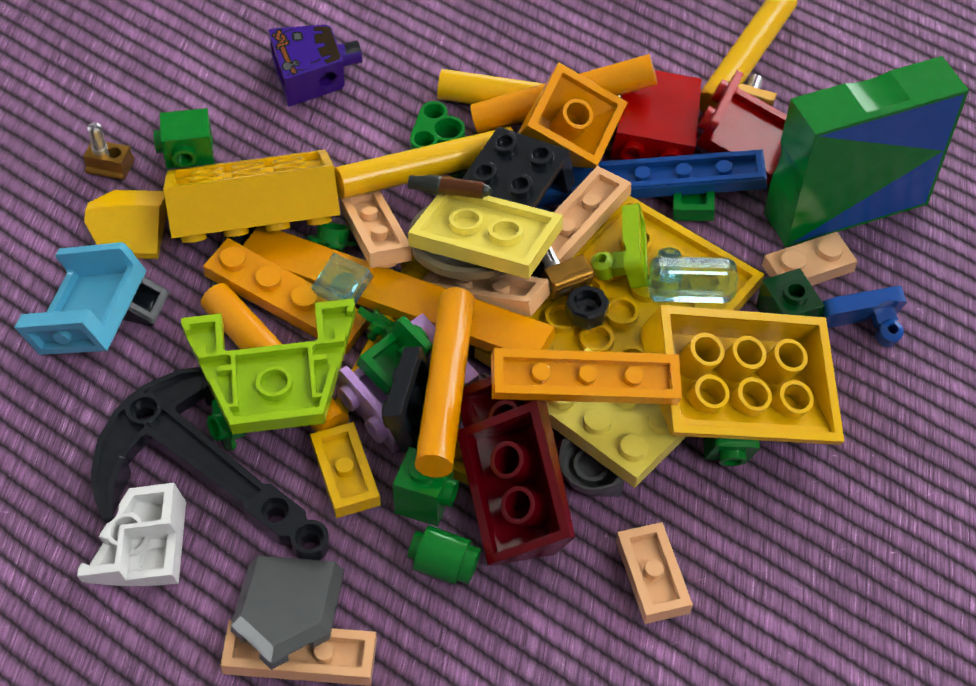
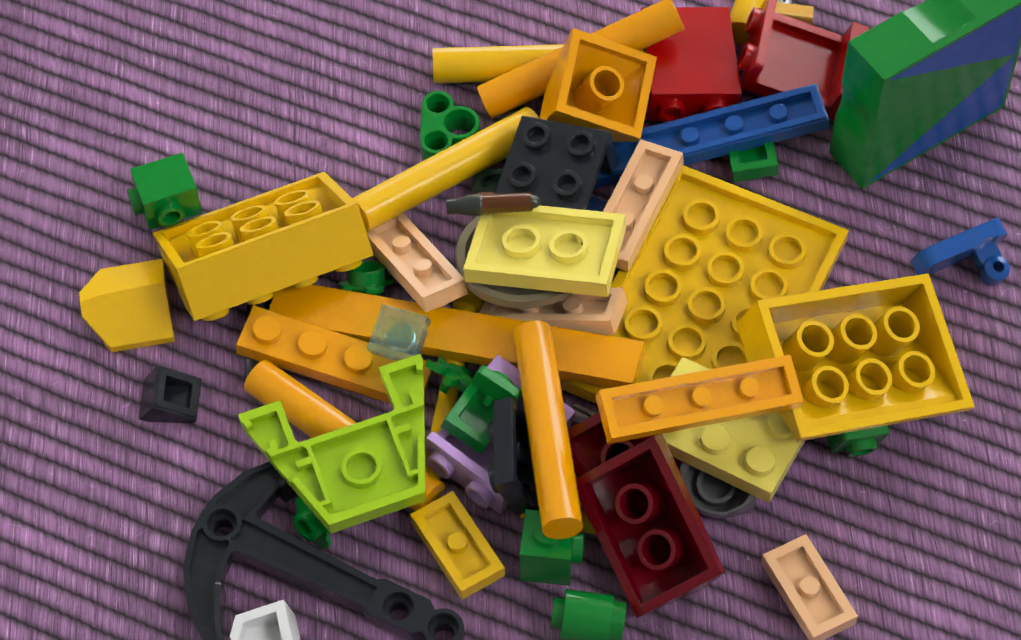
camera: 10 degrees left, 5 degrees up
(89, 301) = (119, 411): medium azure panel -> none
(106, 158) = (80, 232): pearl gold piece -> none
(310, 61) = (277, 66): dark purple torso -> none
(565, 275) = (640, 278): pearl gold piece -> none
(586, 307) = (670, 309): black tile -> none
(634, 258) = (704, 247): lime piece -> none
(691, 278) = (774, 254): clear light blue piece -> none
(790, 295) = (882, 254): dark green brick -> none
(818, 259) = (892, 204): light nougat plate -> none

